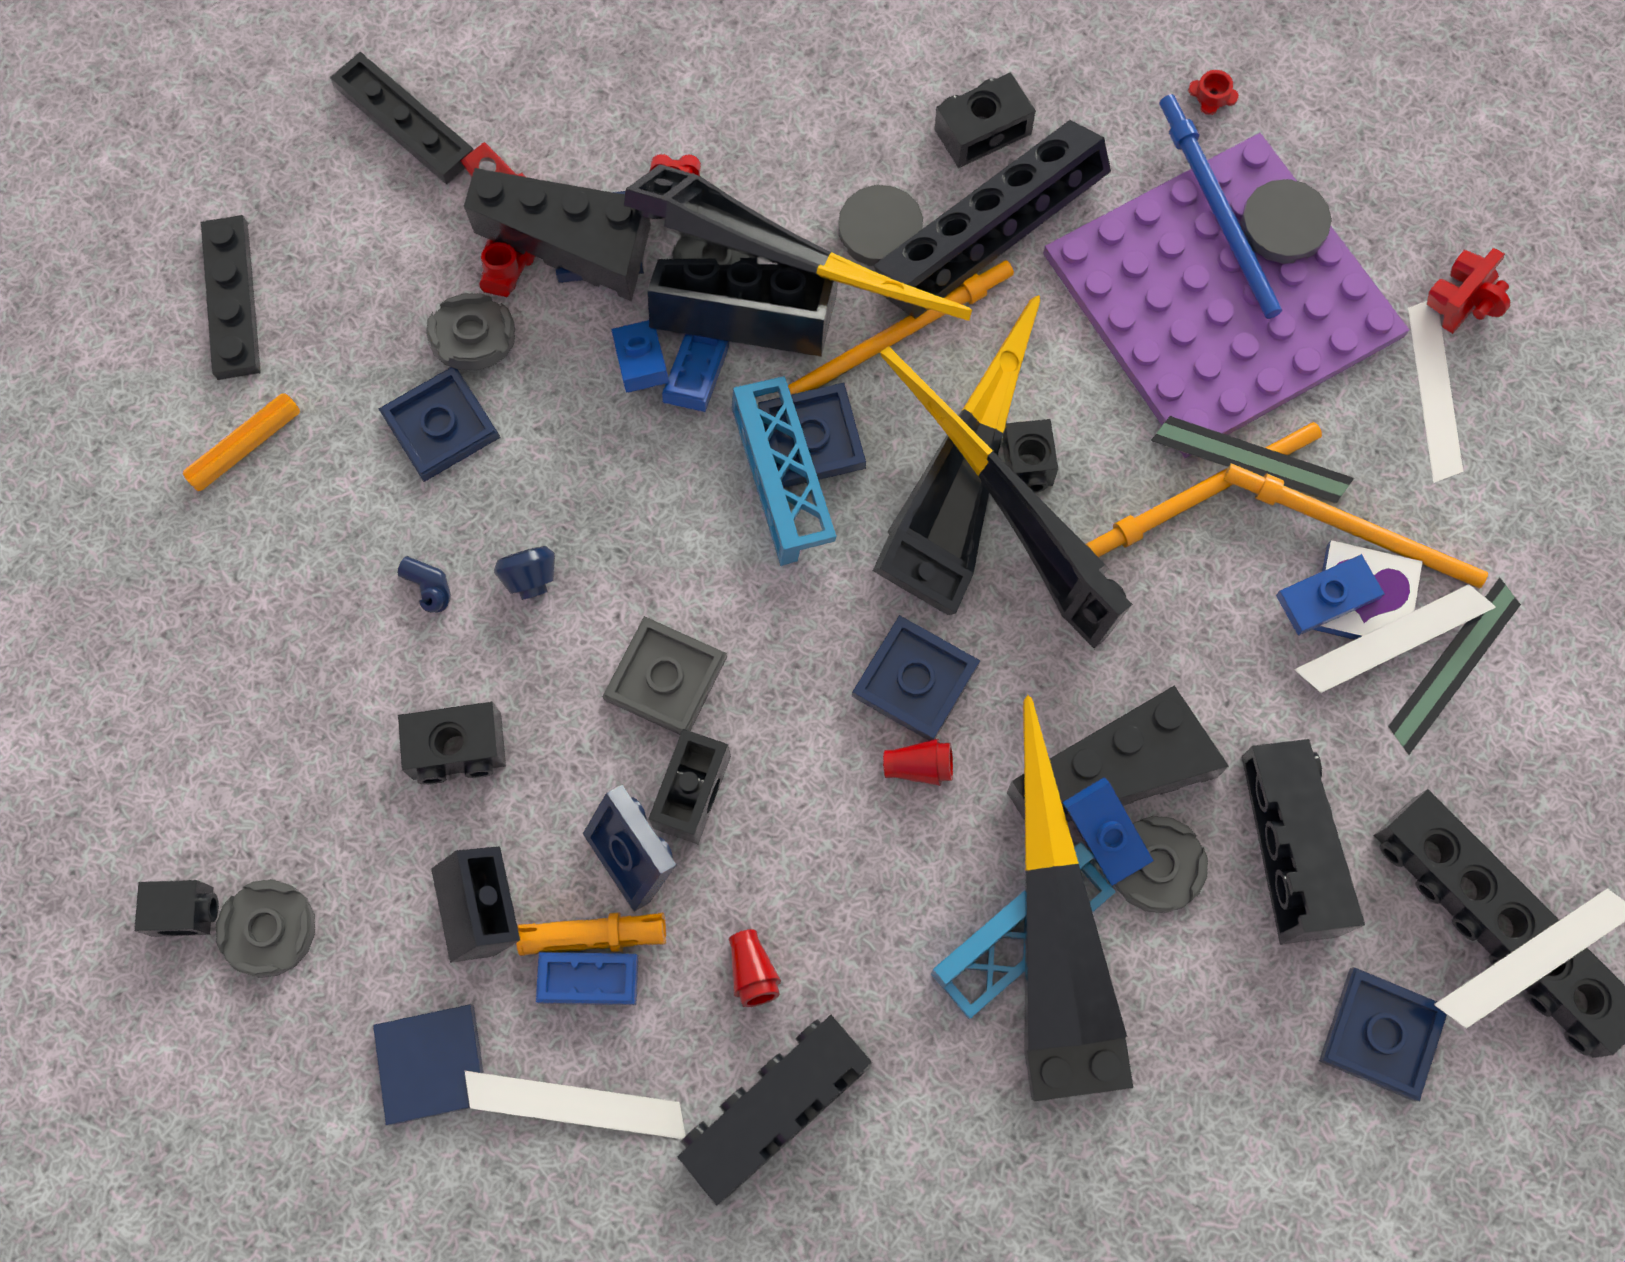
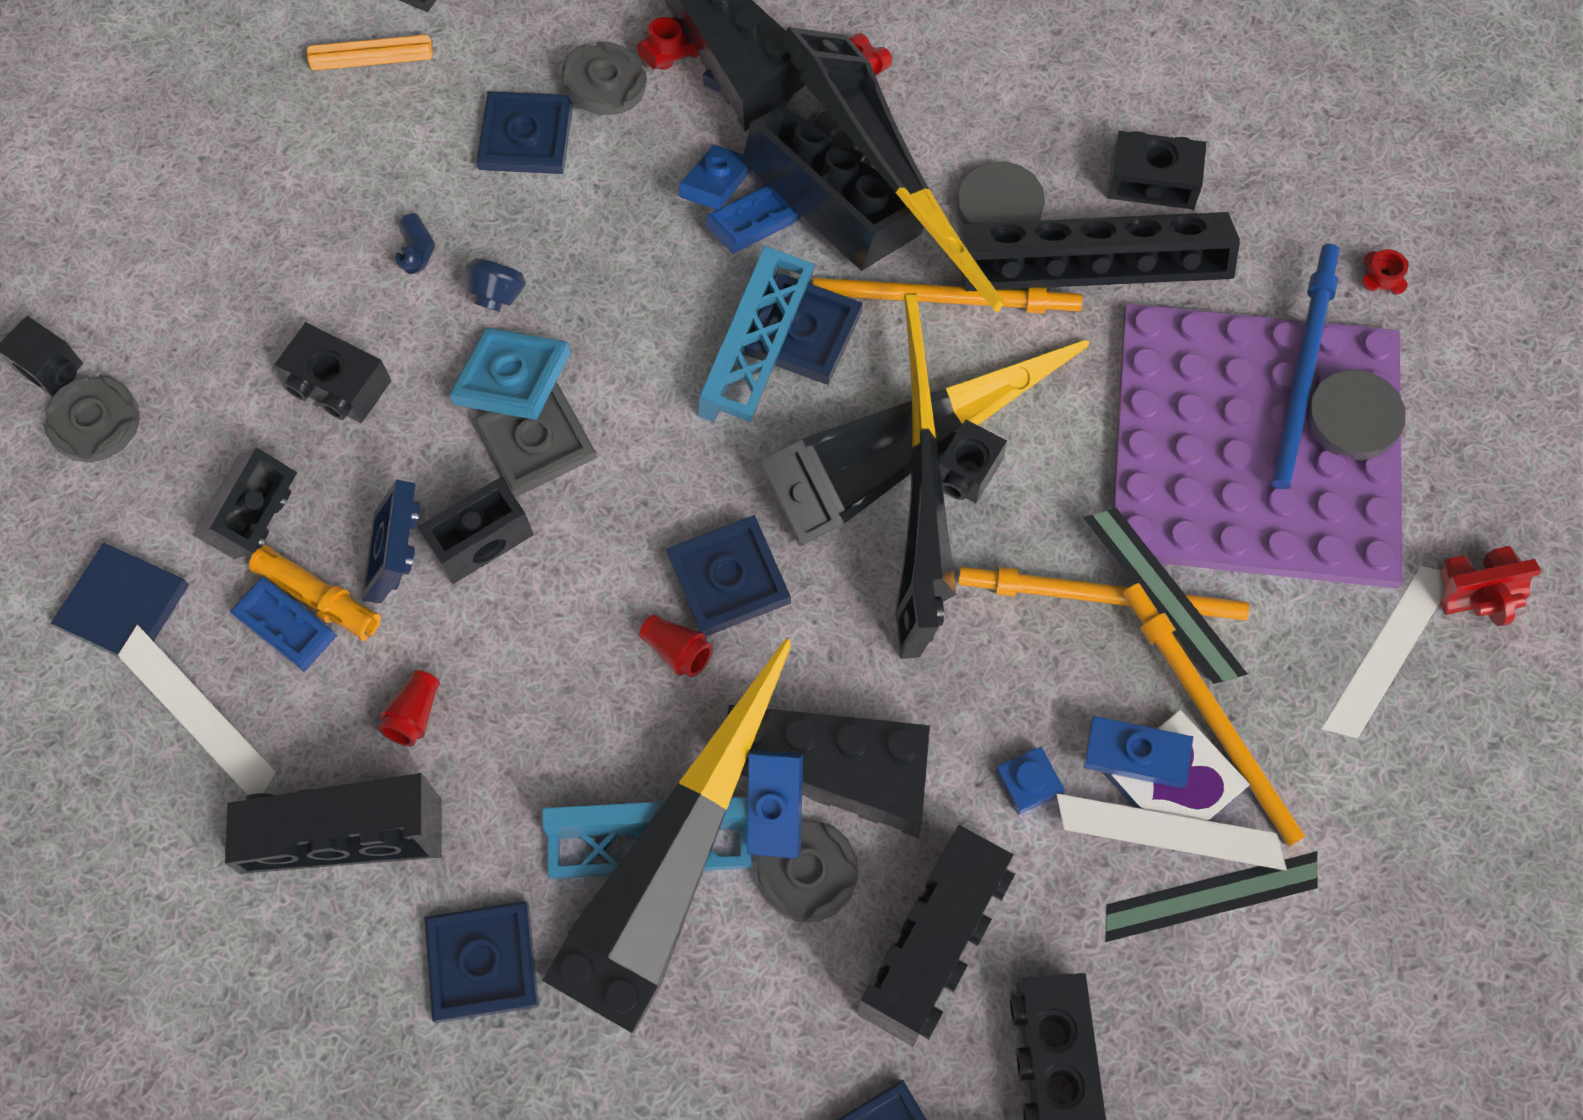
camera: 35 degrees right, 5 degrees down
(604, 637) = (510, 373): none -> dark azure plate
(972, 1123) = (481, 962): none -> dark blue tile
(1264, 673) = (1029, 780): none -> blue plate

